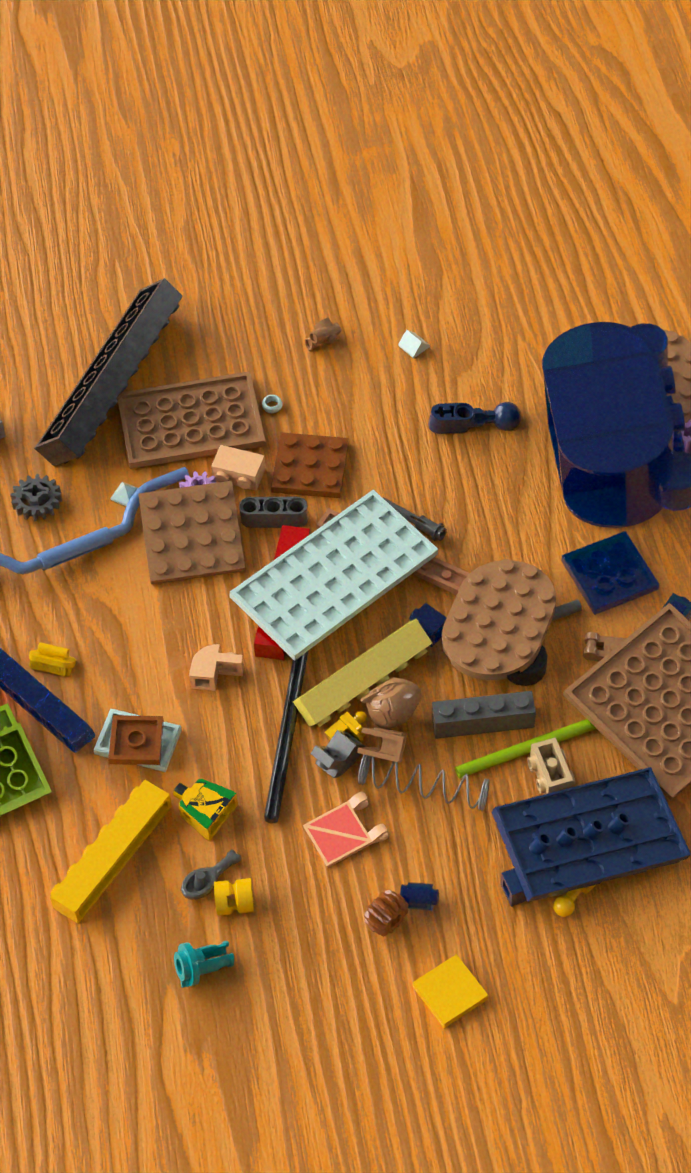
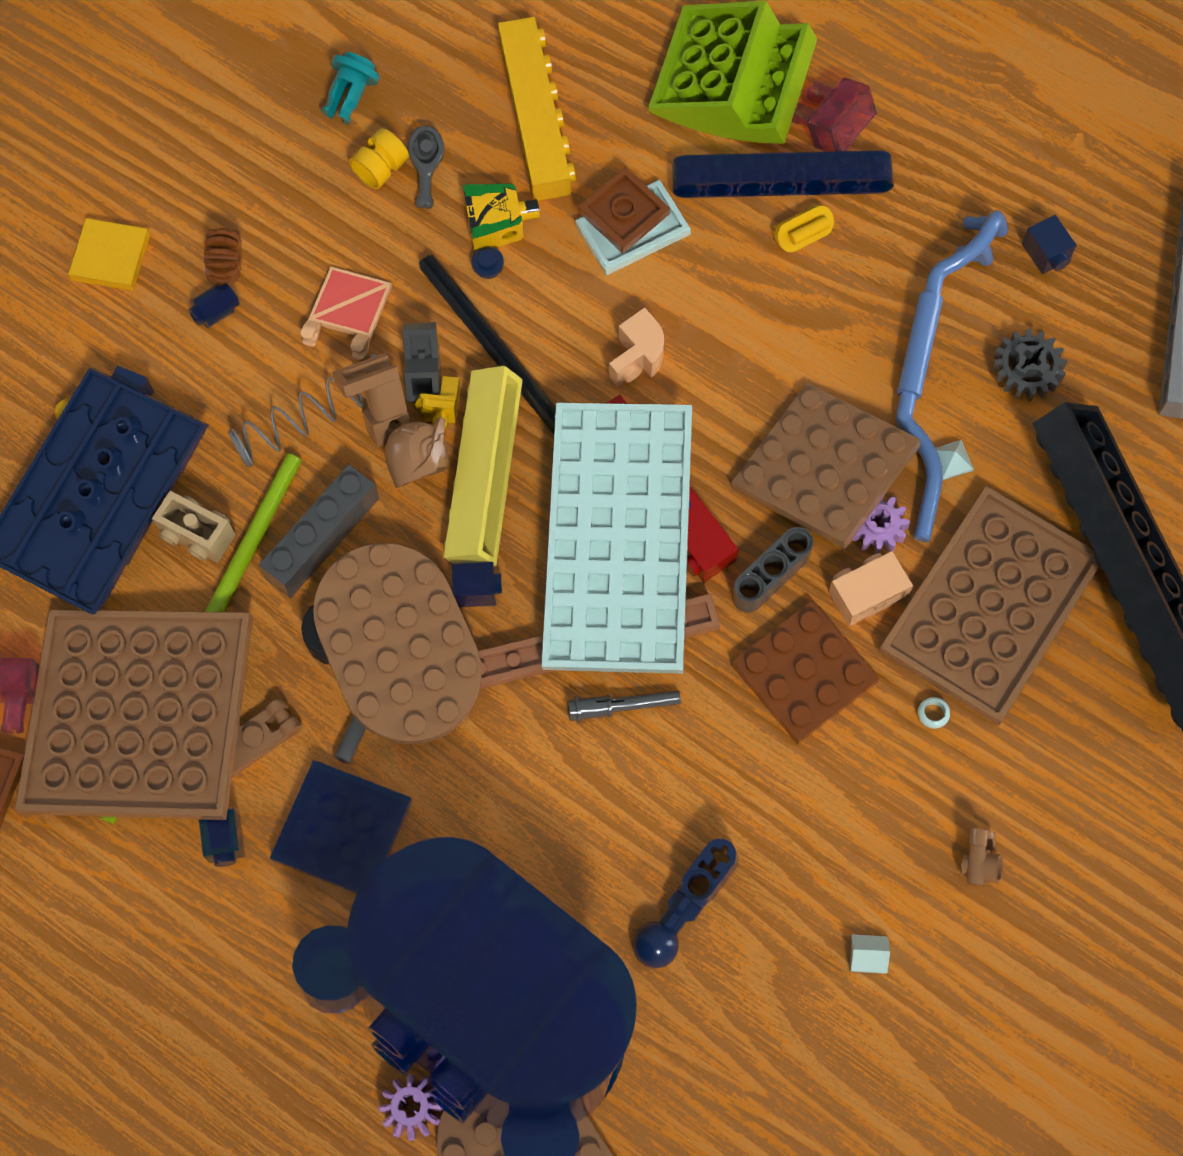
camera: 135 degrees right, 15 degrees up
(240, 785) = (487, 262): none -> dark blue plate

